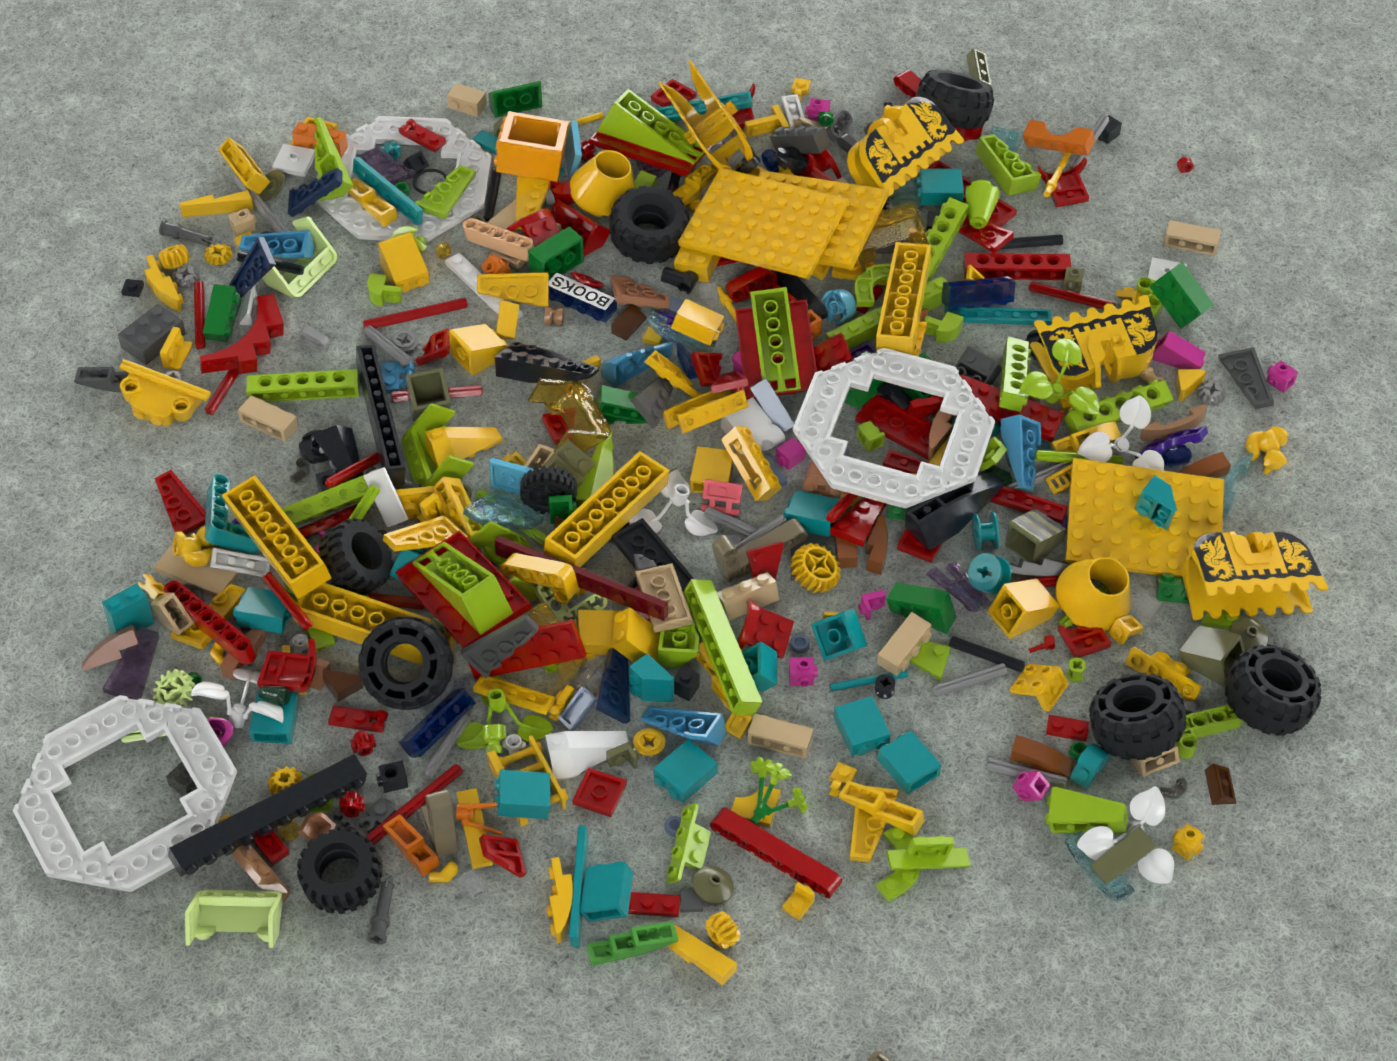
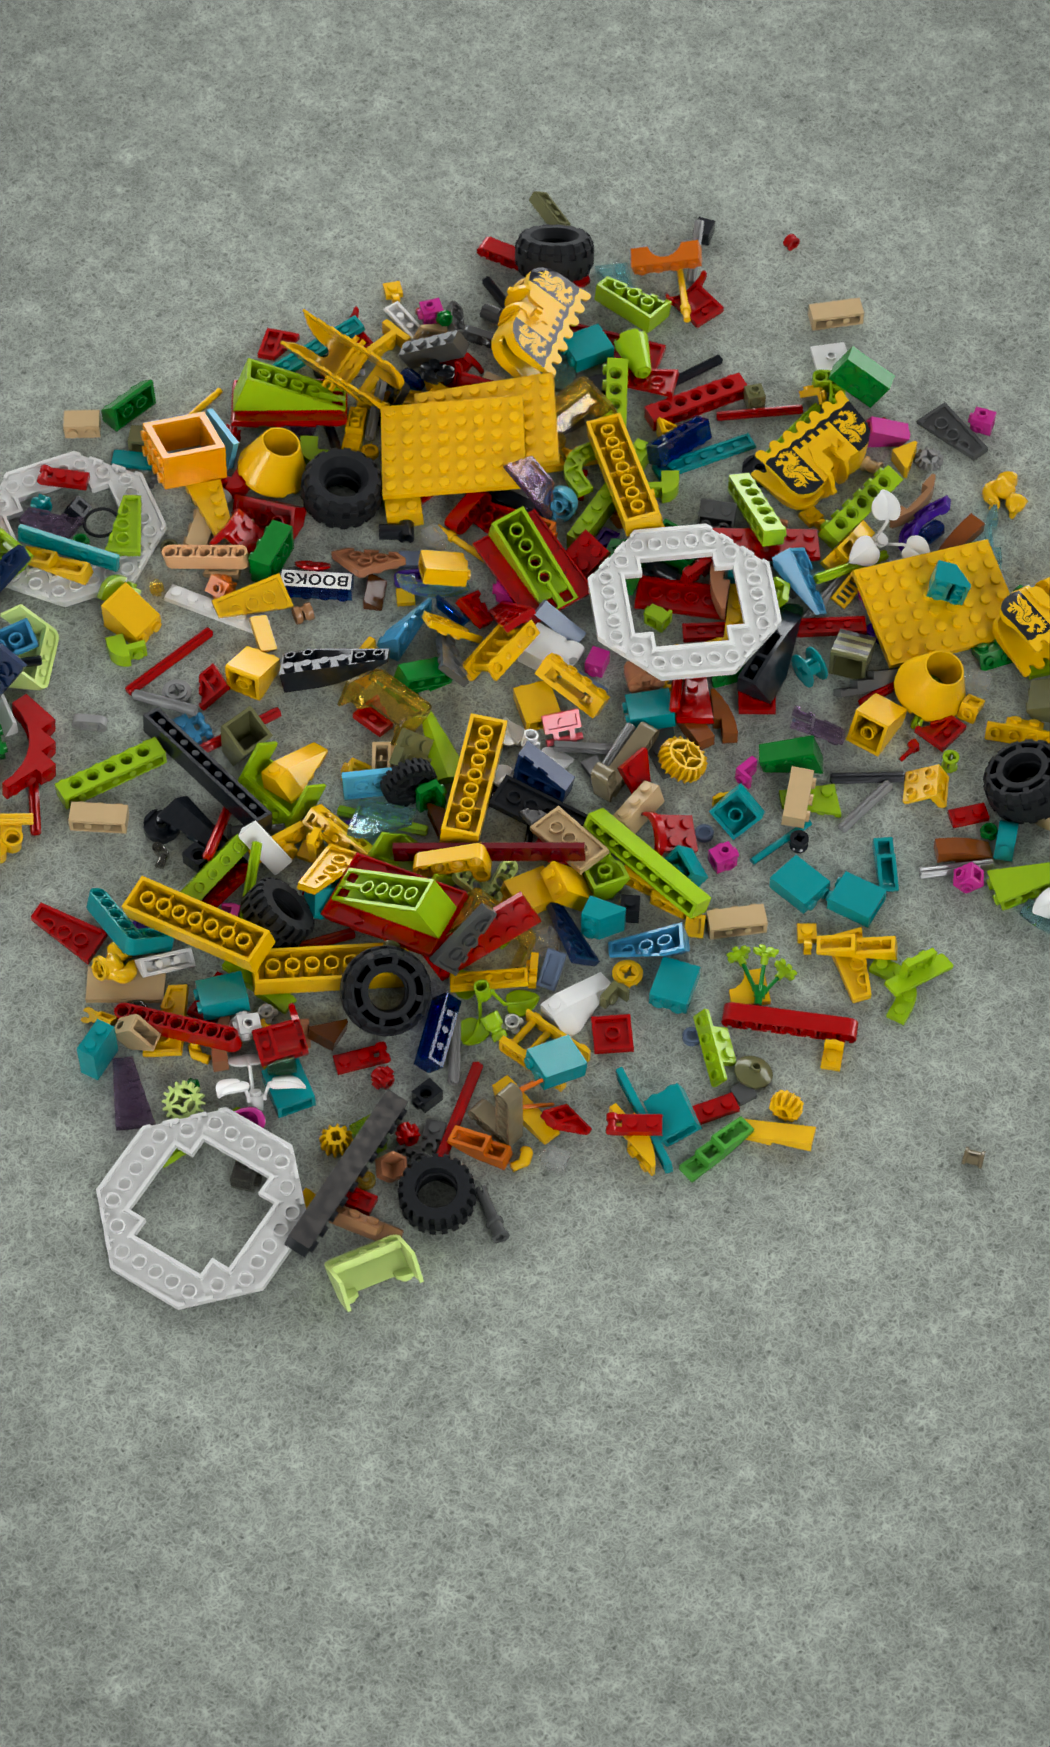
camera: 25 degrees left, 5 degrees up
(111, 648) = (101, 1088): slope -> none
(268, 637) = (245, 1023): none -> white brick
(287, 601) = (246, 978): red axle -> none
(492, 195) = (166, 513): black axle -> none
(562, 885) = (634, 1124): none -> red plate
(677, 530) = (542, 773): none -> dark blue wedge
(815, 274) = (533, 482): none -> clear purple wing
(957, 741) = (885, 863): none -> teal slope
(979, 575) = (834, 694): teal piece -> none
(1037, 384) = (794, 515): lime plant -> none

